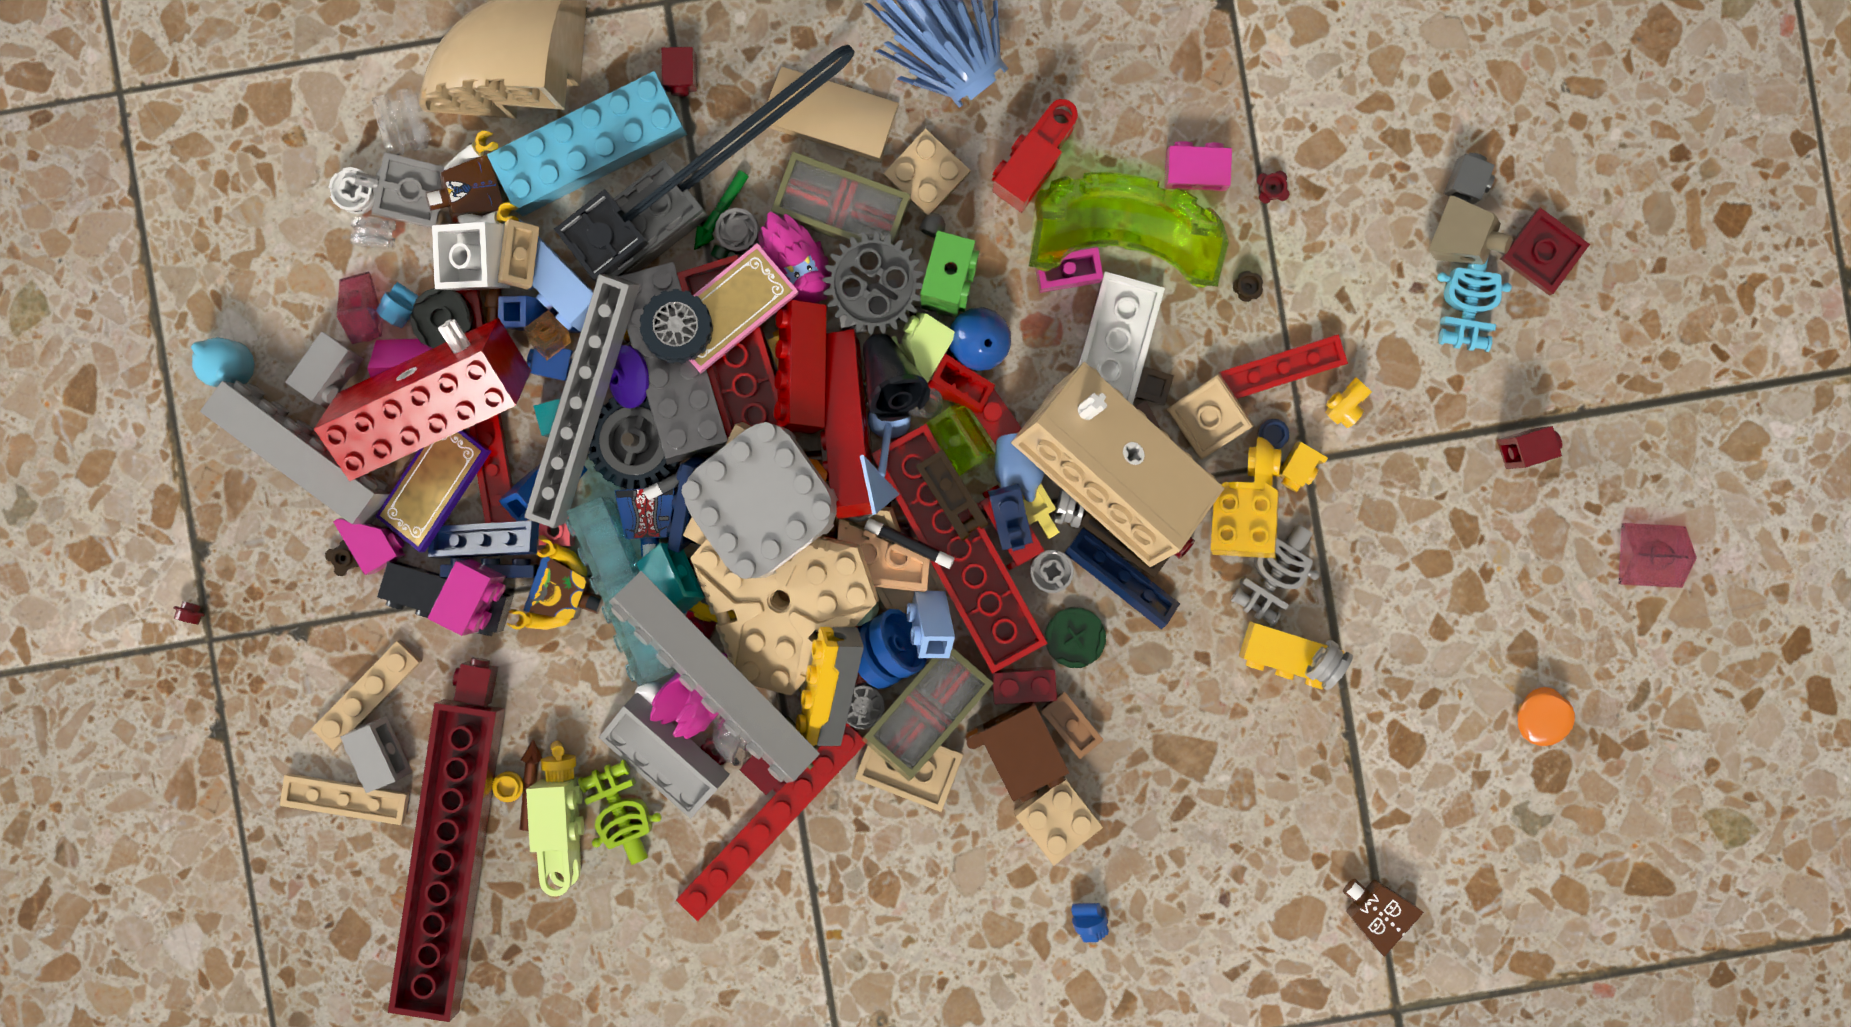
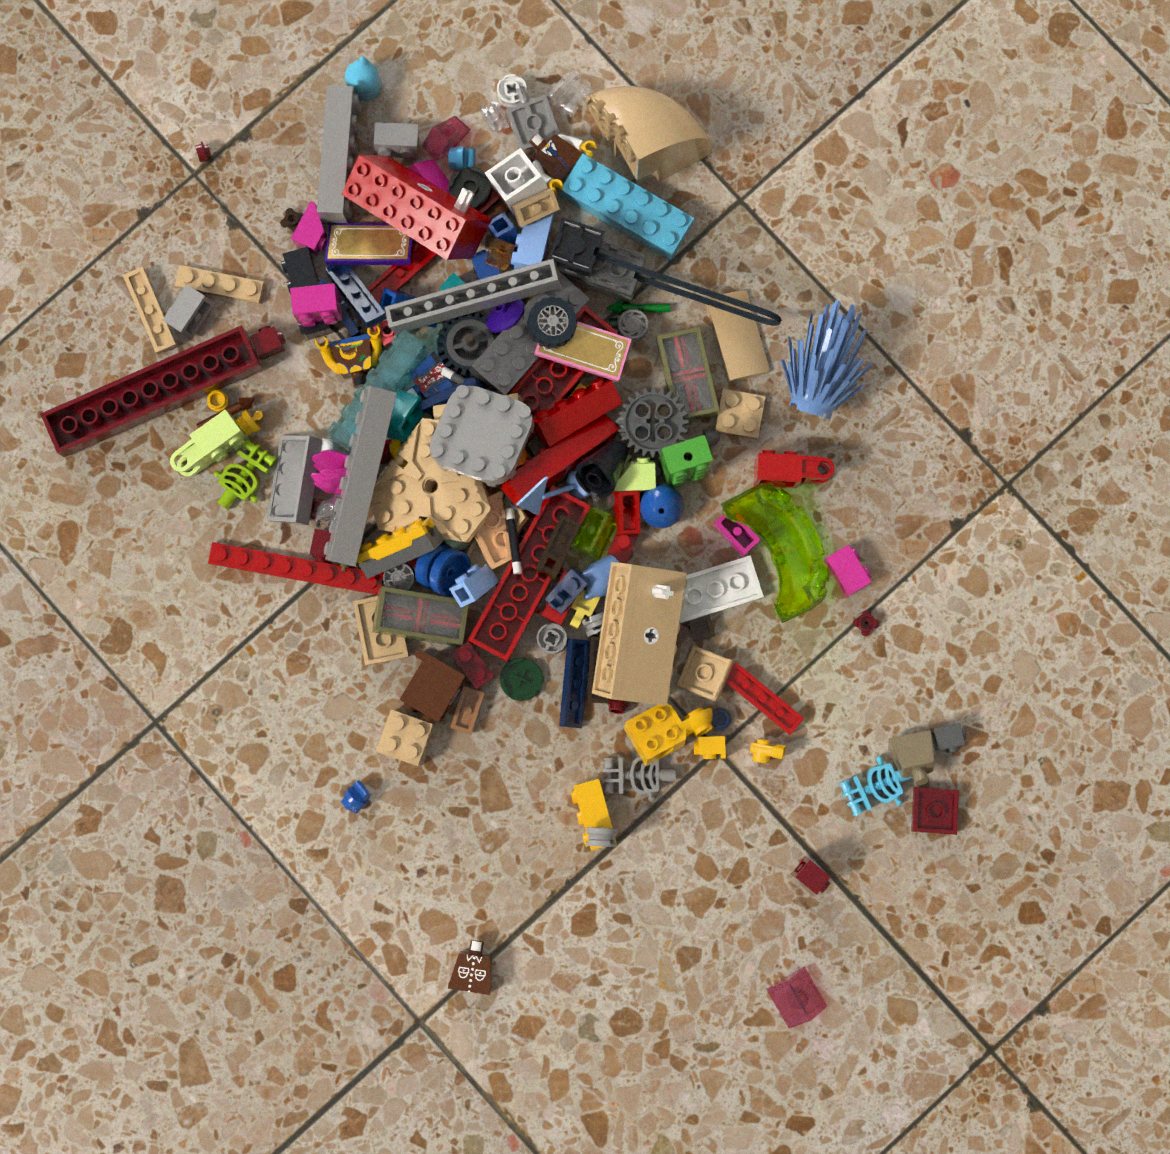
camera: 60 degrees right, 5 degrees down
(679, 70) = (704, 232): dark red brick -> none
(796, 256) = (639, 368): dark pink head -> none
(1248, 278) = (802, 642): dark brown plate -> none
(1545, 717) = (655, 994): orange piece -> none

